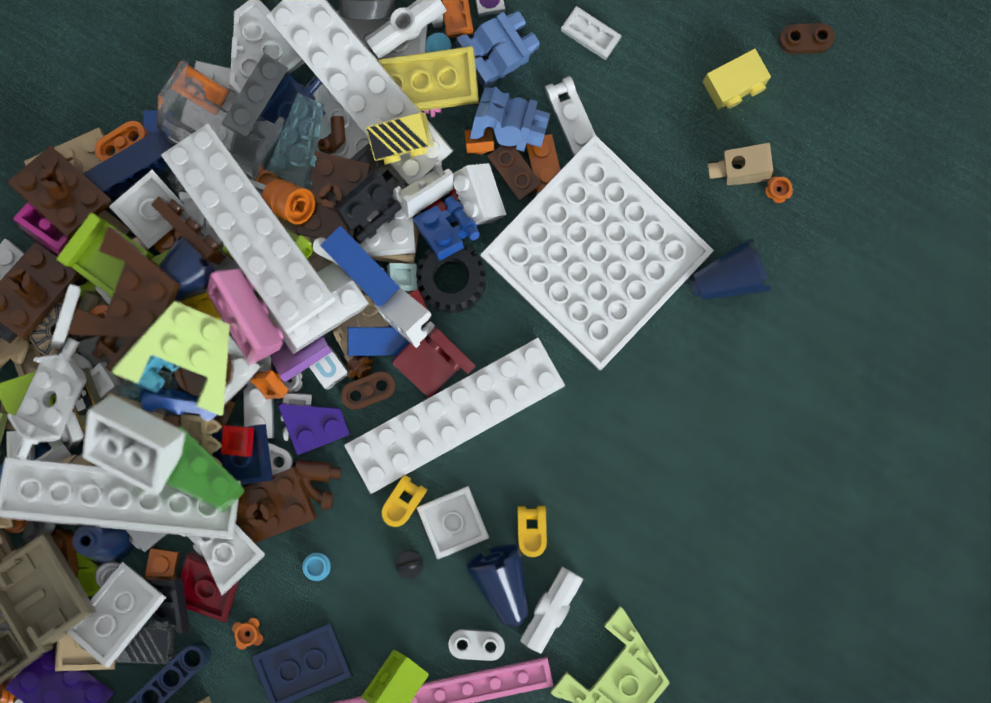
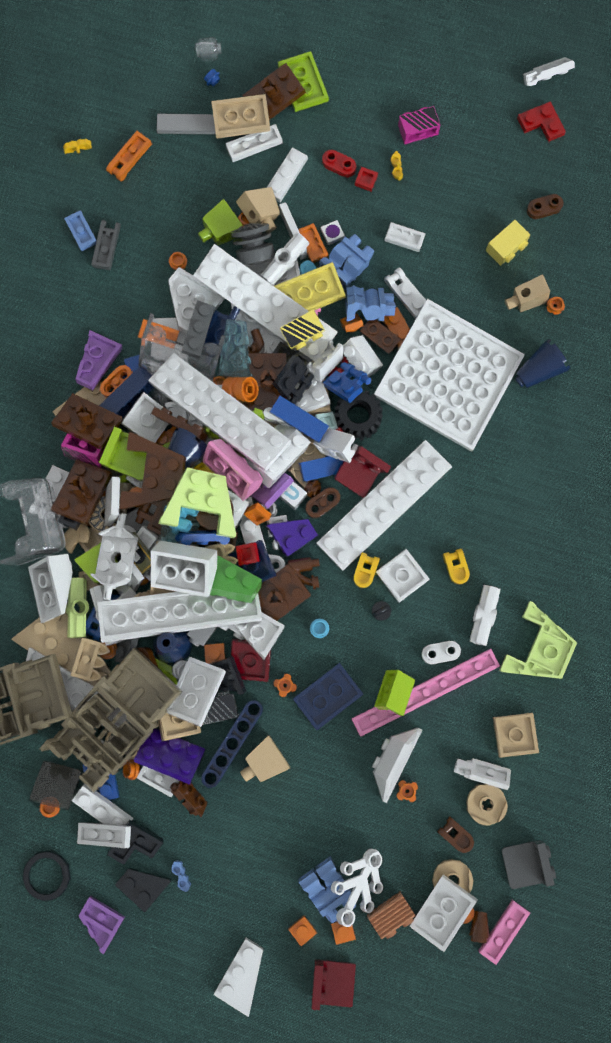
camera: 15 degrees left, 5 degrees down
(105, 101) = (97, 359): none -> medium lavender wing
(502, 582) = (447, 605): dark blue cone -> none

